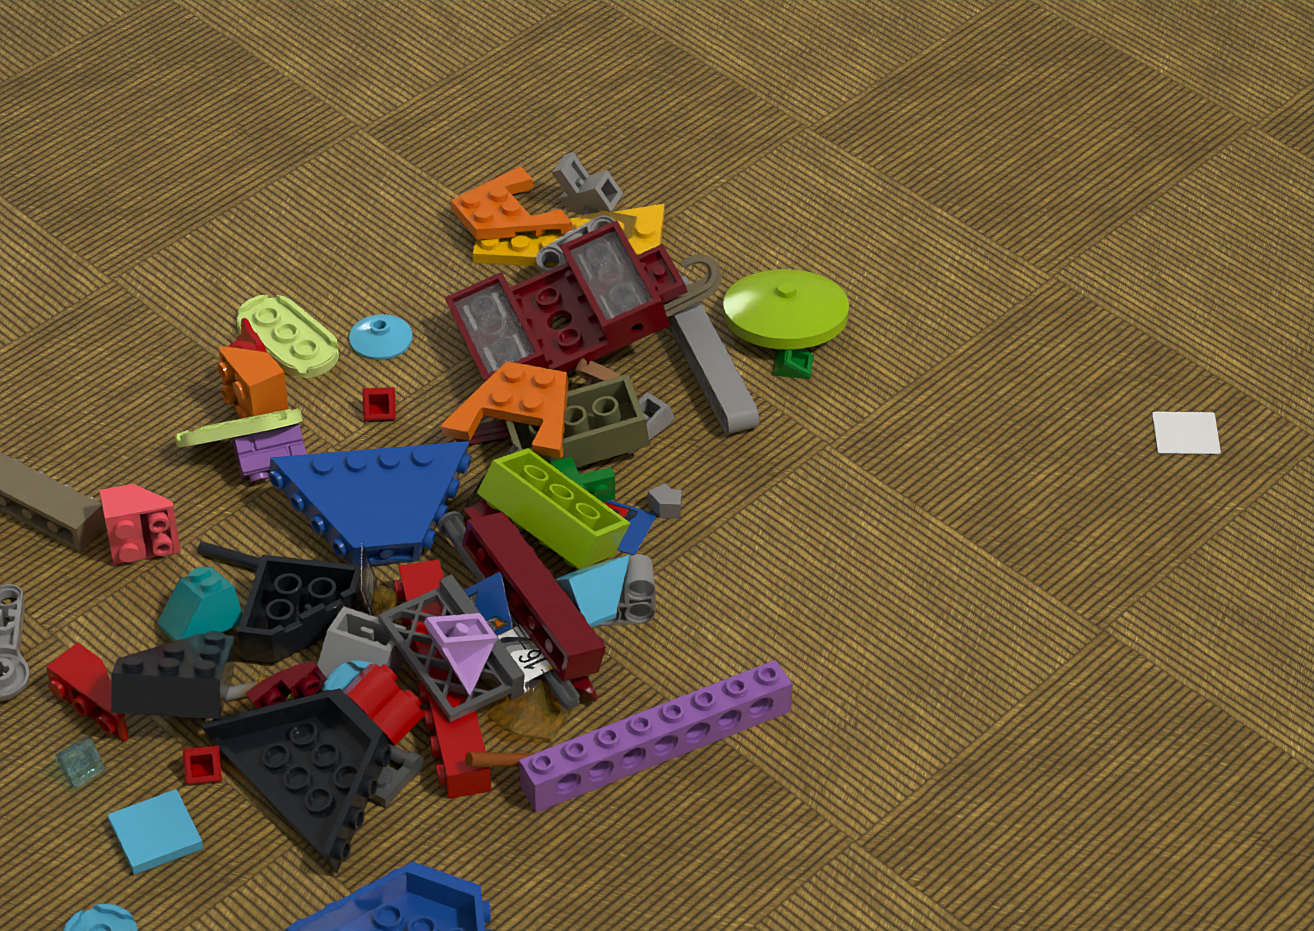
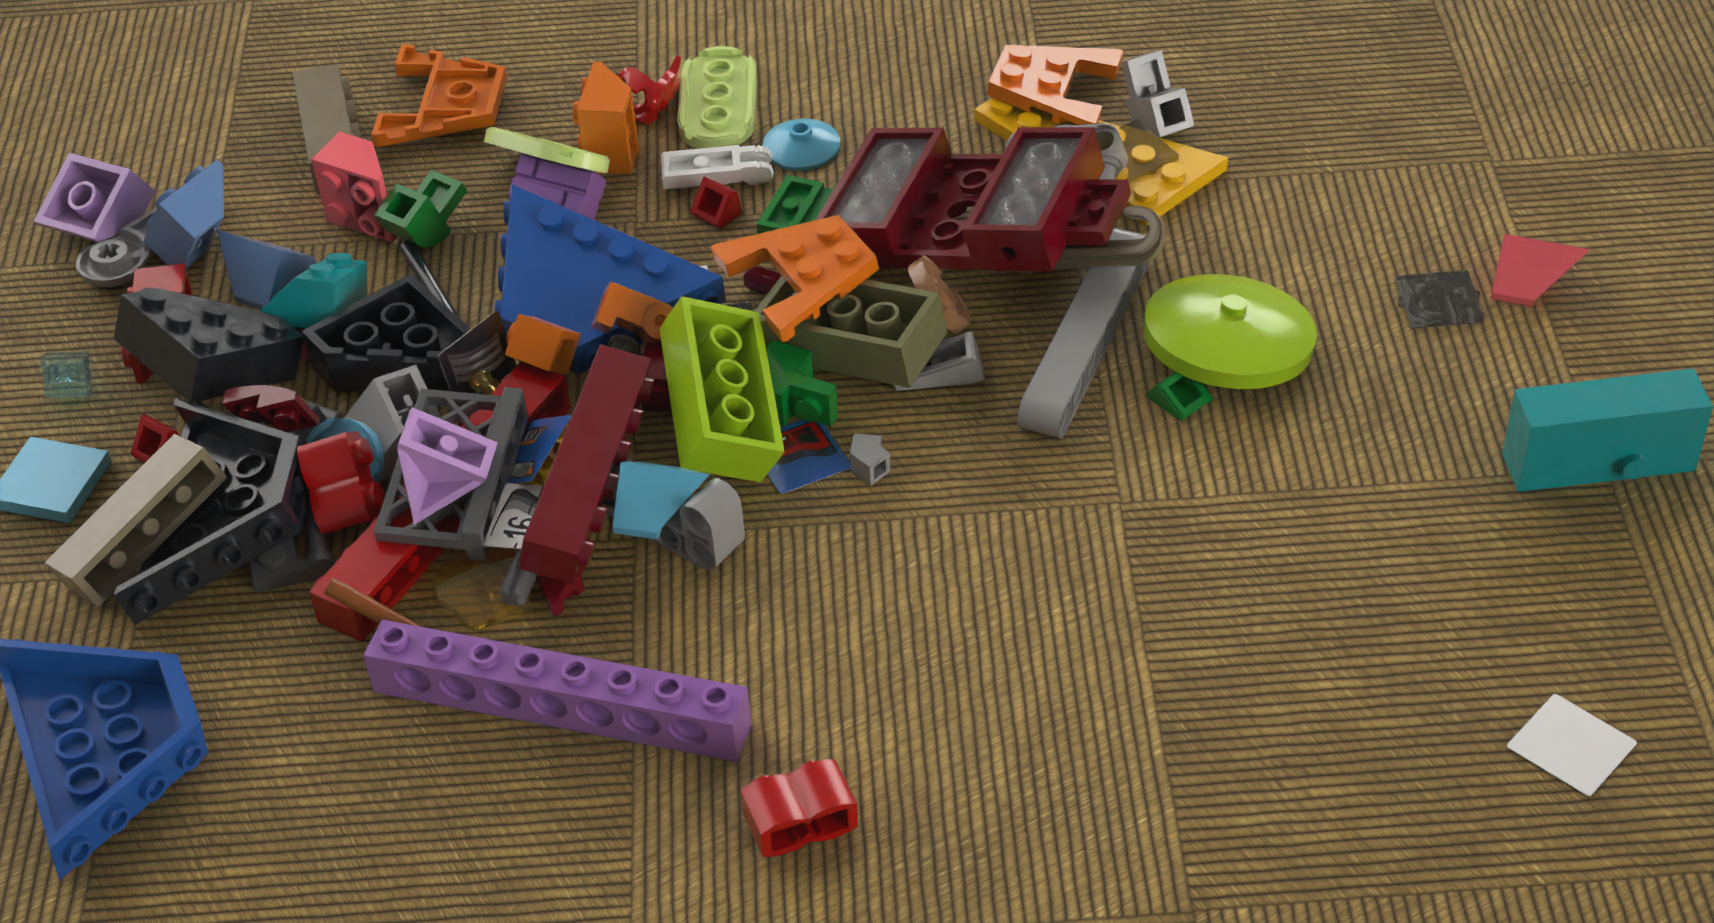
camera: 45 degrees right, 0 degrees up
(47, 609) = (188, 217): none -> medium blue slope
(103, 427) = (455, 99): none -> orange wing
(123, 620) = (259, 268): none -> medium blue slope
(195, 512) = (422, 213): none -> green brick
(275, 808) = (136, 520): none -> dark tan brick
(348, 381) = (722, 164): none -> white hinge
(406, 547) = (542, 343): none -> orange brick
(441, 378) = (794, 203): none -> green plate
(445, 493) = (631, 311): none -> orange leg
(862, 707) = (799, 807): none -> red brick
(870, 227) = (1439, 299): none -> clear smoke piece
(905, 182) = (1530, 268): none -> coral slope
(1048, 252) = (1606, 429): none -> teal brick

